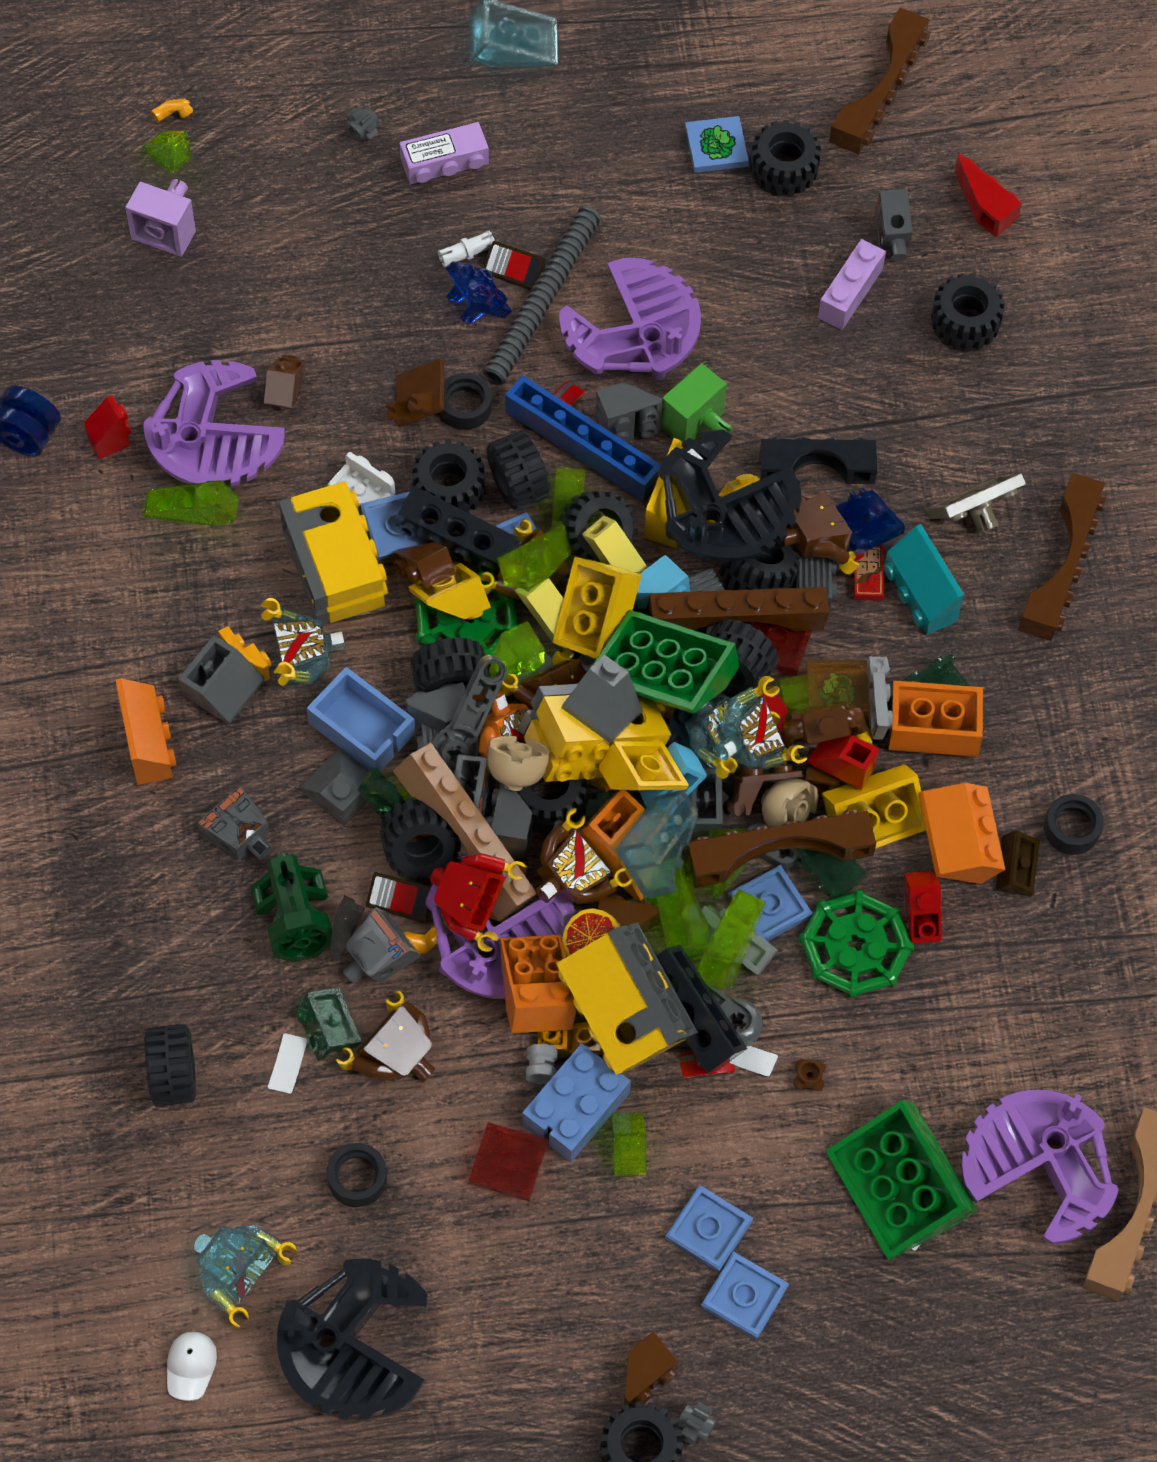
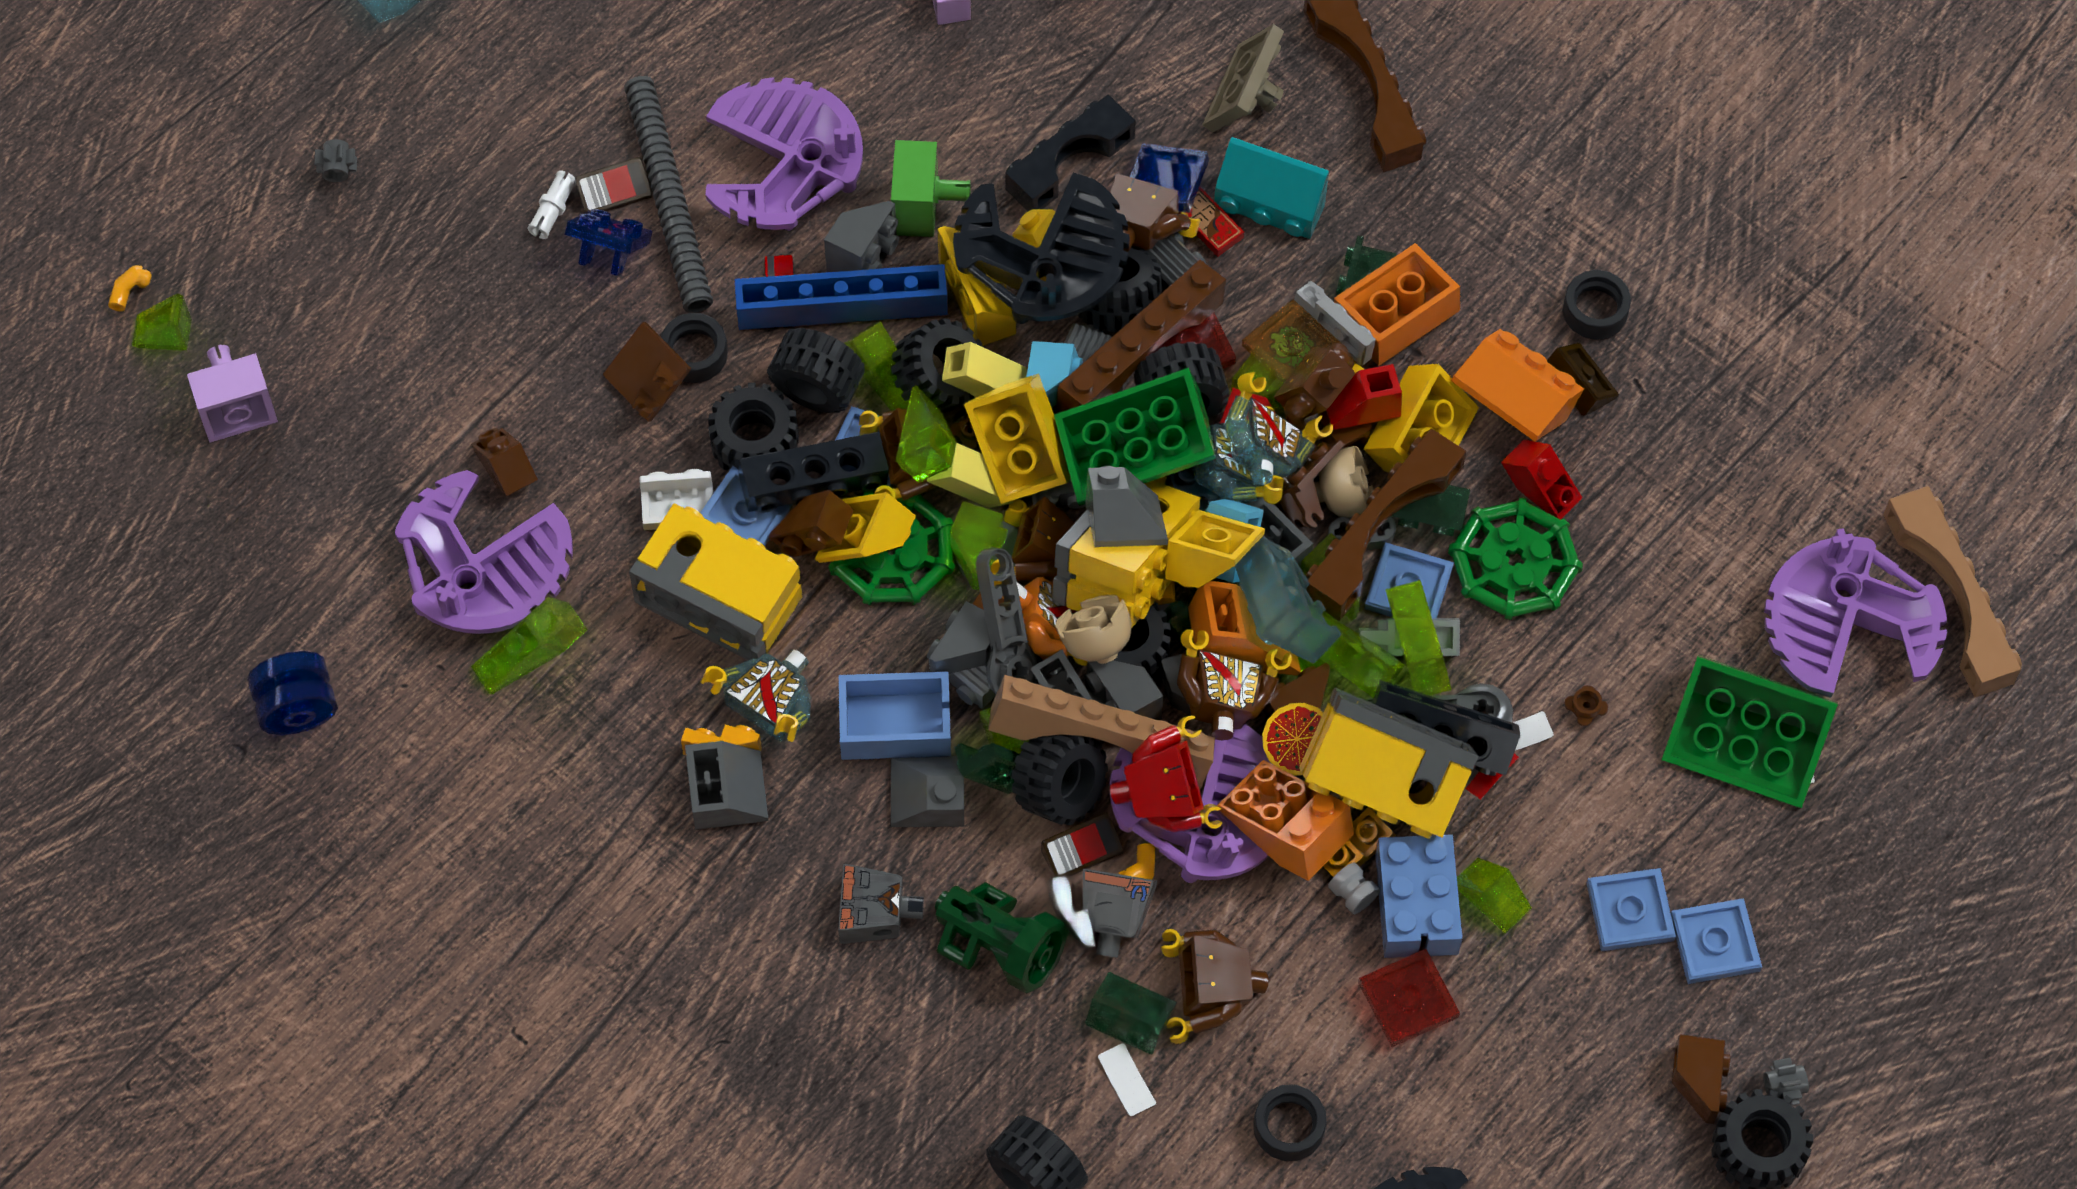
camera: 40 degrees left, 0 degrees up
(108, 428) = (380, 636): red slope -> none
(146, 731) = (701, 889): orange slope -> none
(444, 153) = (443, 130): lavender brick -> none
(446, 662) = (930, 600): black tyre -> none

